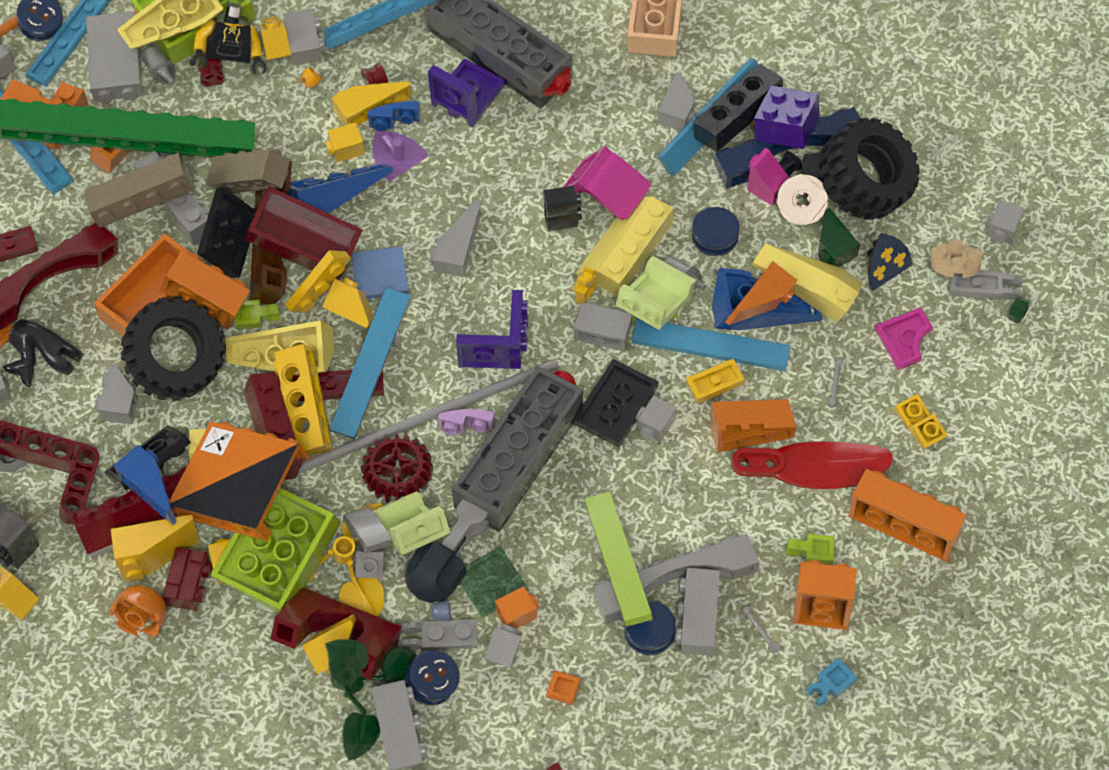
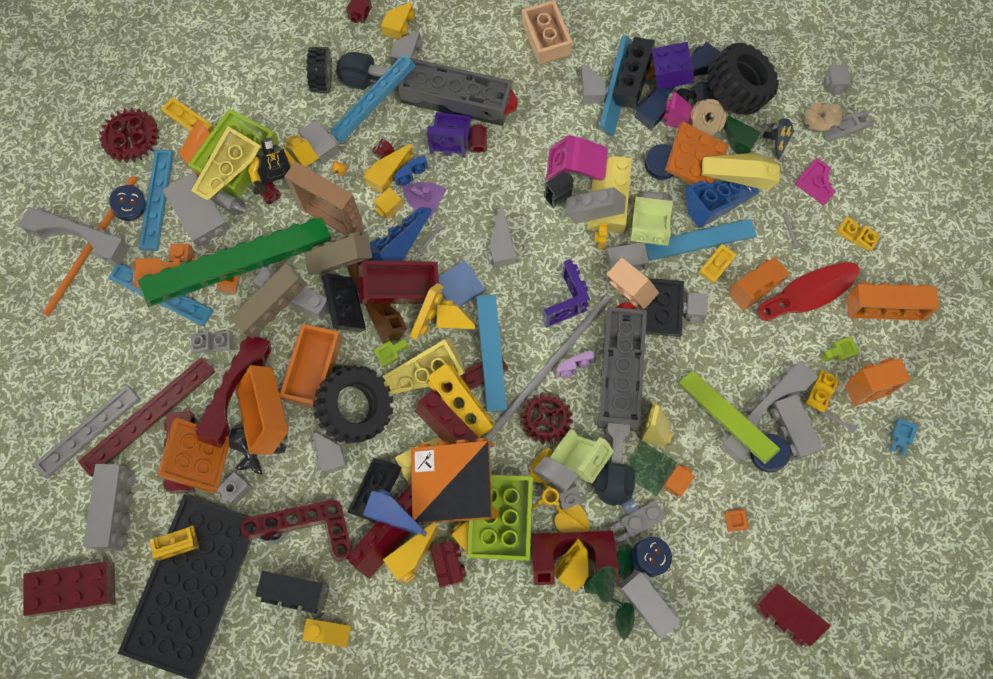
camera: 25 degrees left, 10 degrees up
(50, 215) = (211, 342): none -> light grey slope
(64, 309) = (261, 410): none -> orange piece
(134, 608) = (428, 602): orange cylinder -> none
(207, 286) = (348, 351): orange brick -> none
(262, 98) = (308, 184): none -> medium nougat window
(393, 196) = (420, 250): none -> light grey hinge
(498, 110) = (478, 139): none -> dark red brick
(503, 646) = (686, 512): light grey brick -> none
(519, 525) = (656, 427): none -> light yellow wedge
(585, 354) = (632, 284): none -> light nougat brick
(593, 244) = (595, 205): none -> light grey brick
(752, 227) = (688, 153): none -> orange plate
(760, 587) = (822, 391): none -> yellow slope
(765, 294) = (724, 189): orange slope -> none
(1018, 309) = (877, 133): dark green tile -> none

